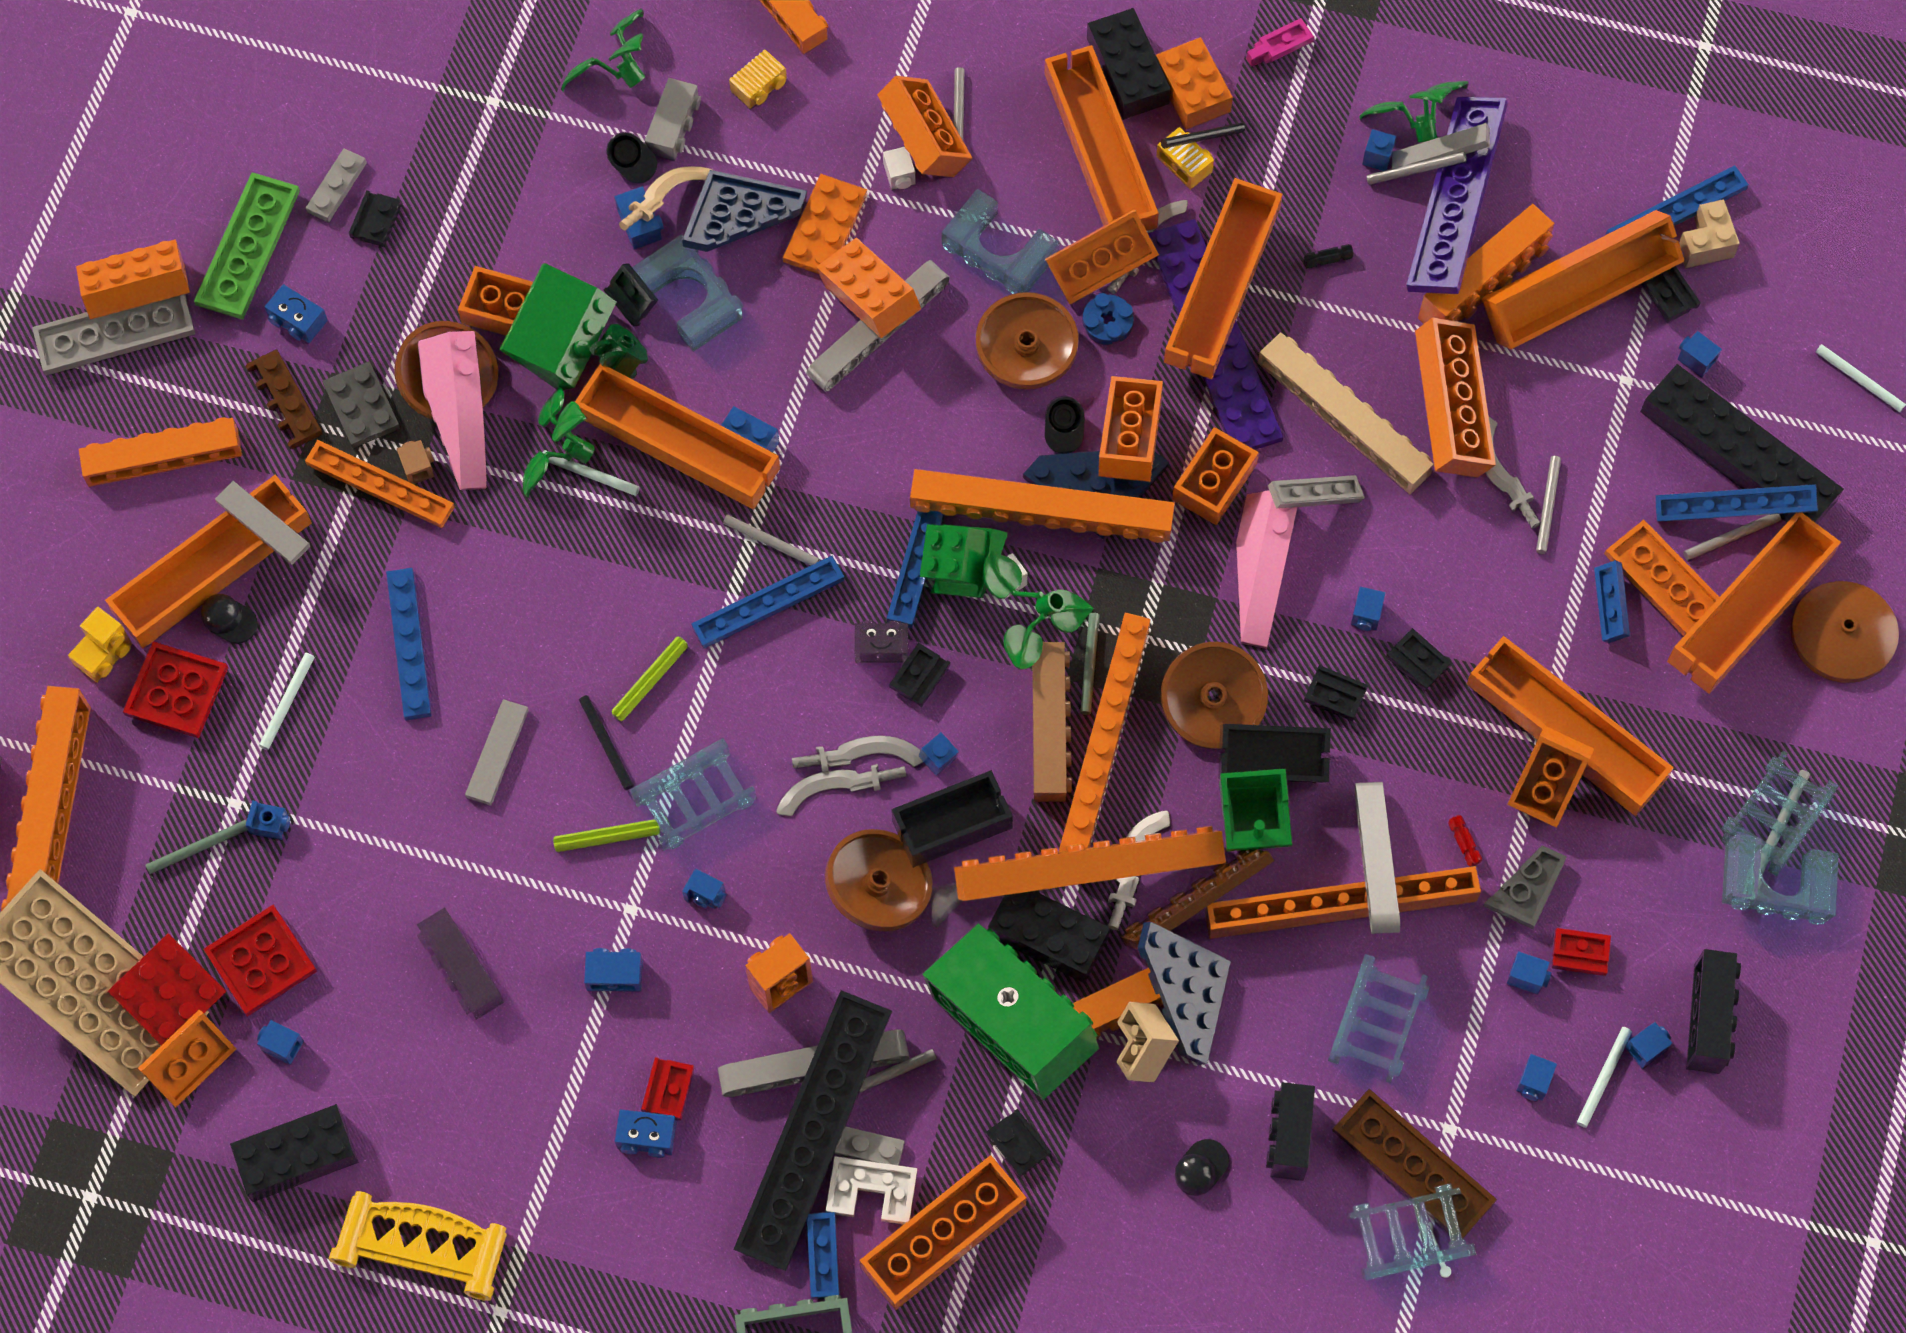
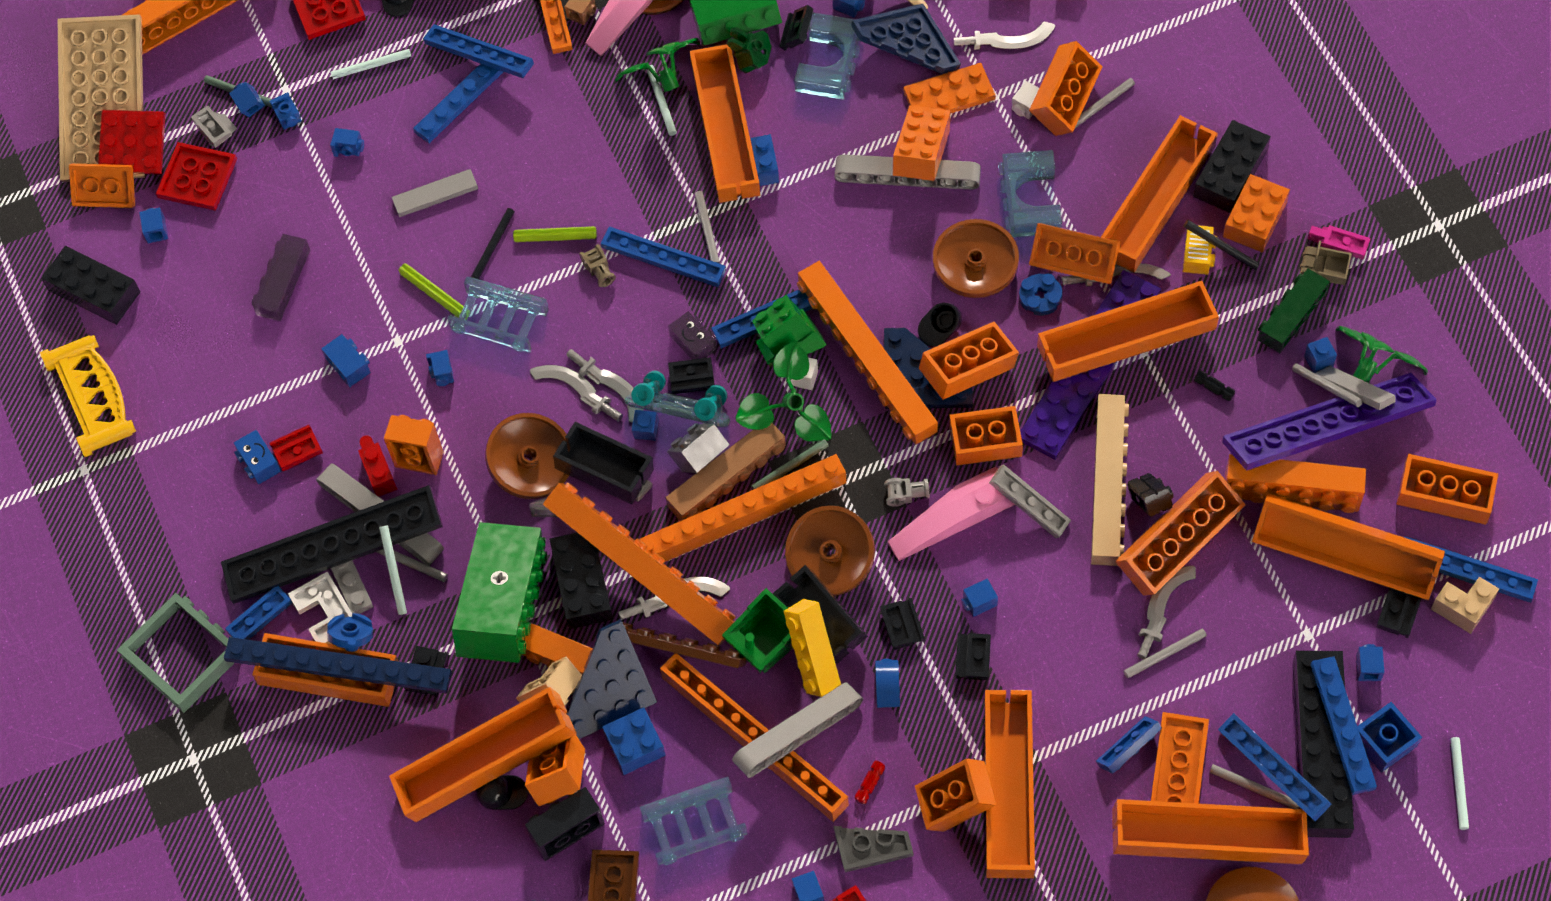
camera: 55 degrees right, 5 degrees down
(216, 902) = (213, 126): none -> light grey slope
(217, 845) = (246, 99): none -> blue brick
(362, 789) = (346, 142): none -> blue brick
(379, 590) = (478, 51): none -> blue plate
(719, 664) = (597, 264): none -> dark tan connector
(759, 1028) = (376, 466): none -> red brick
(816, 136) = (1007, 42): none -> white sword
(893, 1092) = (393, 571): none -> light aqua bar
(935, 1189) = (350, 631): none -> blue plate
(945, 710) = (706, 410): none -> piece
(956, 1216) = (338, 665): none -> dark blue plate
(1010, 725) = (697, 447): none -> brick
(1167, 1151) = (482, 754): none -> orange piece
(1206, 586) = (905, 491): none -> light grey connector
(1235, 1095) = (556, 771): none -> orange brick
(1256, 1010) = (634, 741): none -> blue brick
(1293, 73) = (1327, 263): none -> dark tan piece
(1314, 780) = (812, 647): none -> yellow brick
(1317, 134) = (1293, 310): none -> dark green brick
(1387, 748) = (887, 683): none -> blue brick
(1396, 390) = (1150, 494): none -> black brick
(1594, 161) = (1447, 489): none -> orange brick
(1749, 418) = (1343, 725): none -> blue plate
(1779, 396) = (1388, 737): none -> blue brick

